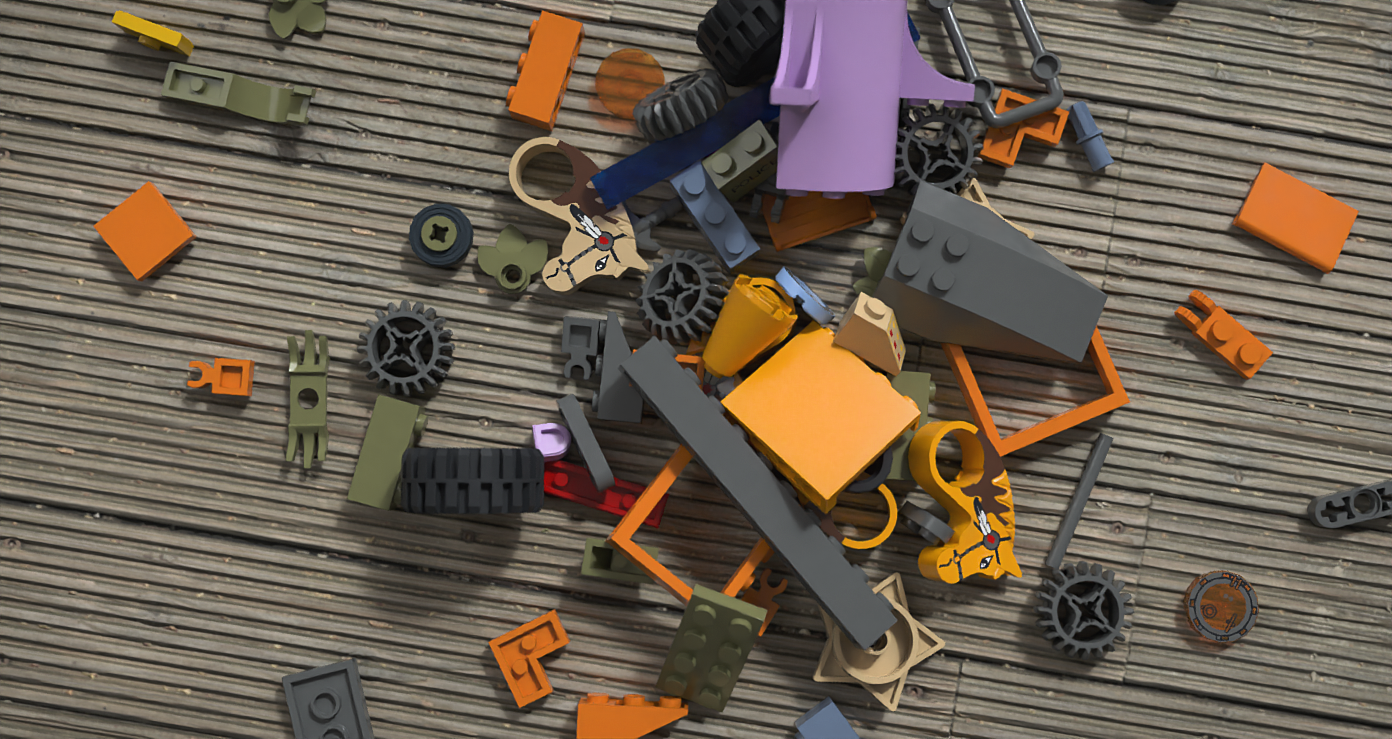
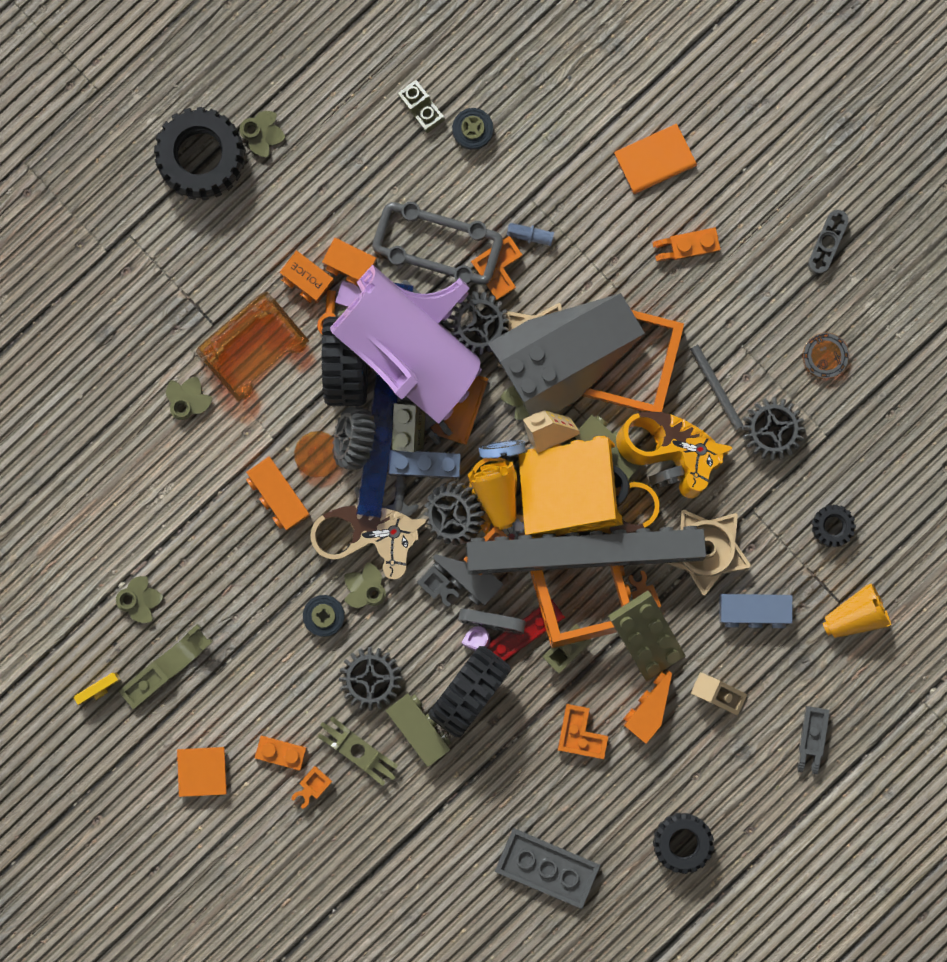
camera: 55 degrees left, 0 degrees up
(239, 308) = (280, 752): none -> orange plate

